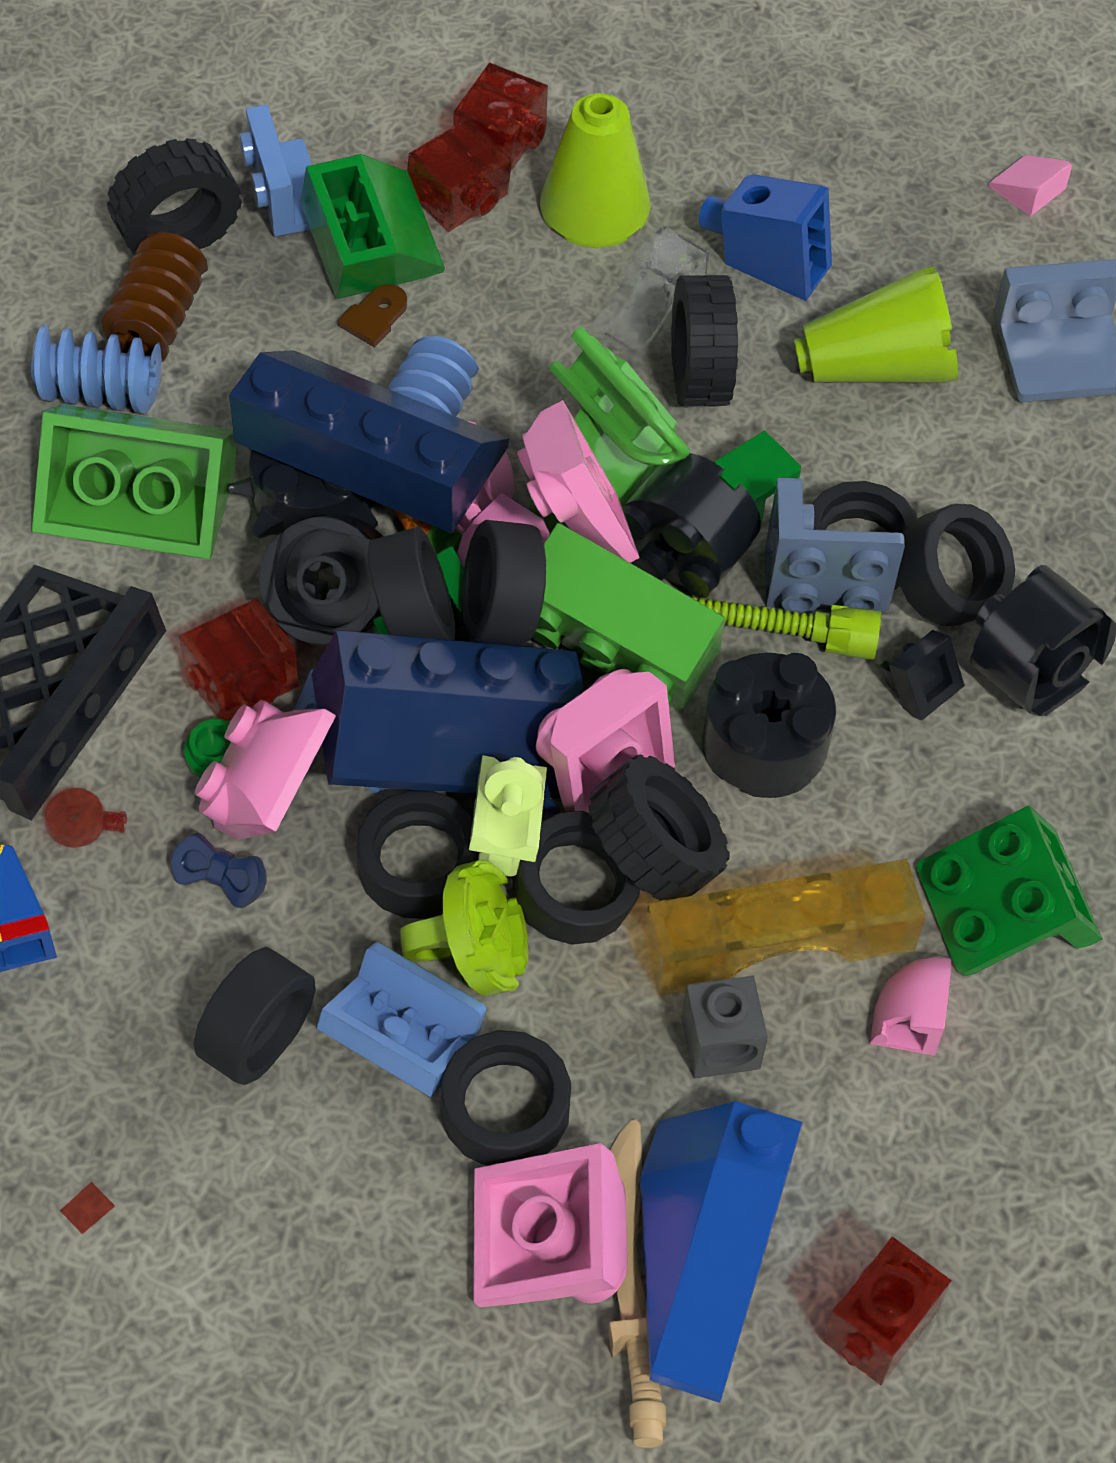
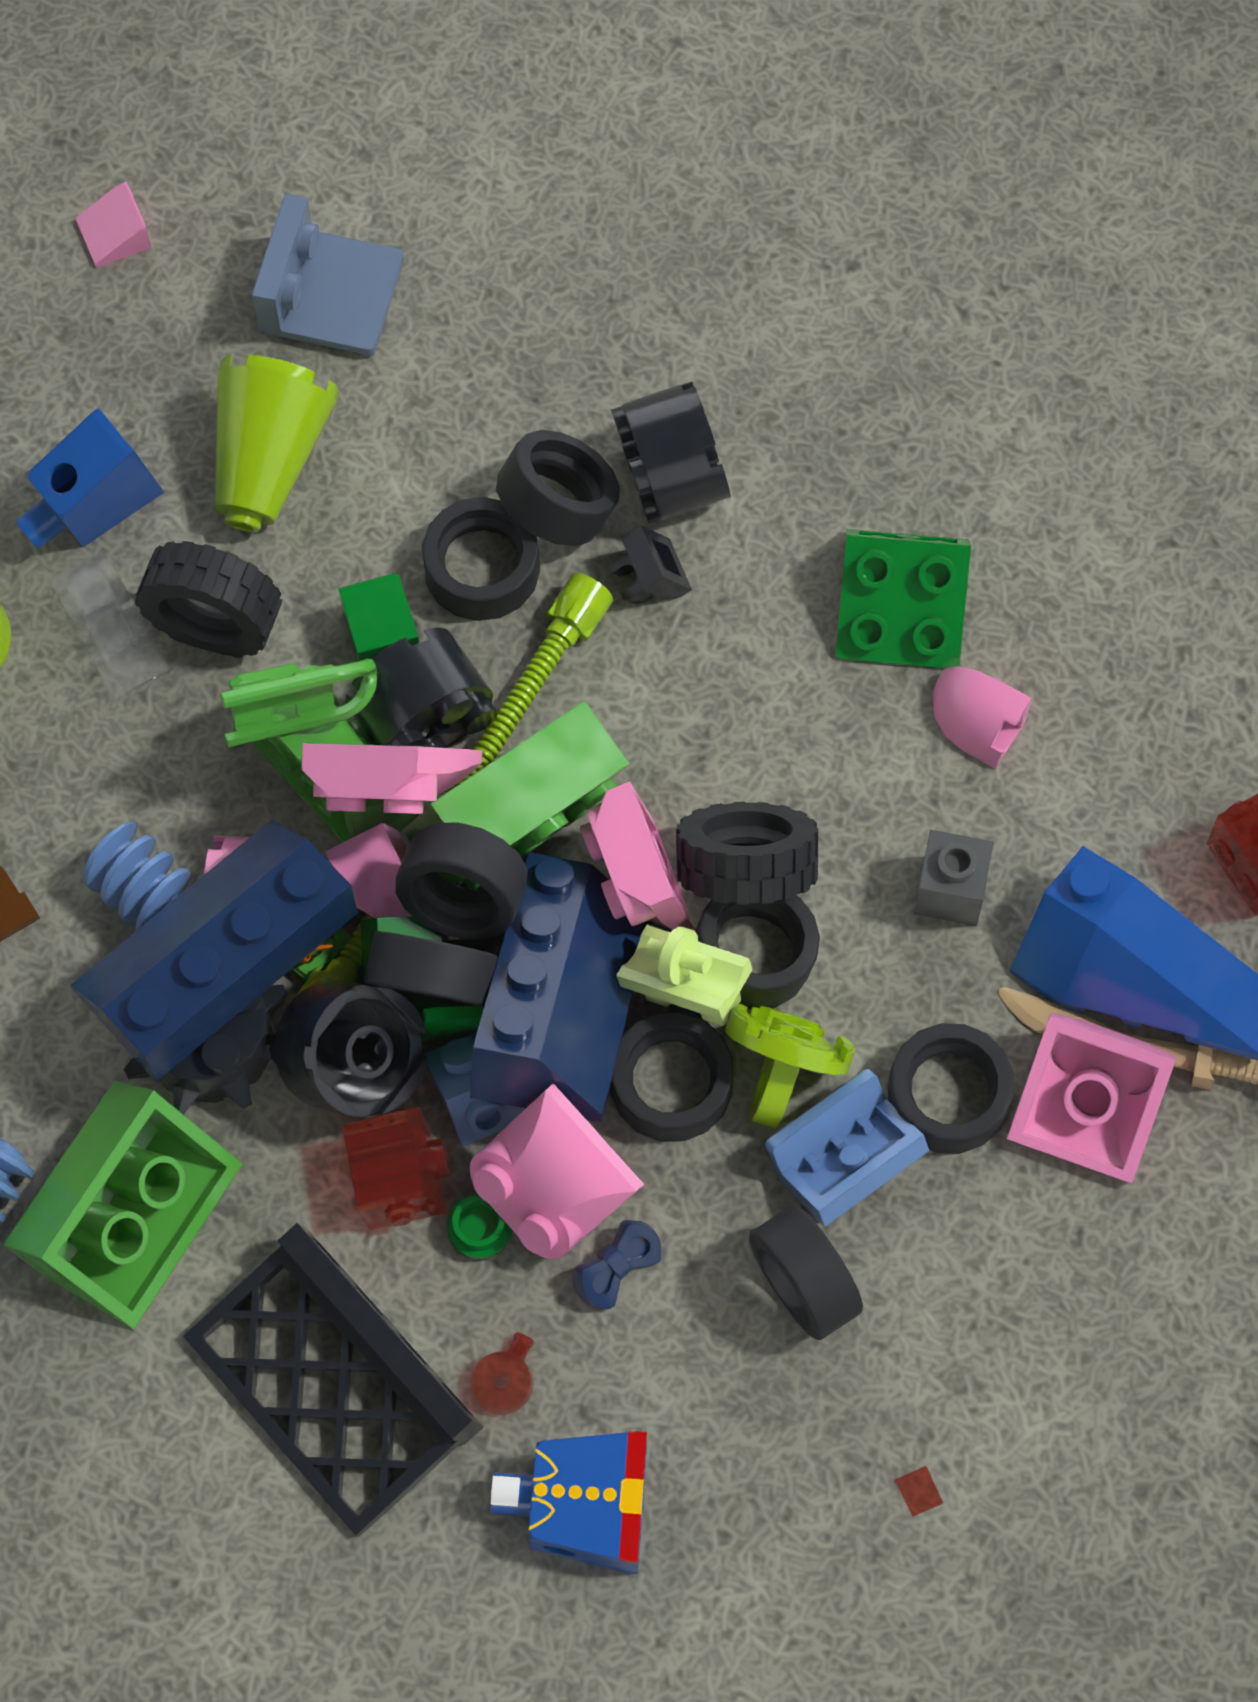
camera: 65 degrees left, 10 degrees up
(768, 723) = (670, 686): black brick -> none
(825, 567) = (498, 625): sand blue bracket -> none
(845, 911) = (873, 791): clear yellow arch -> none

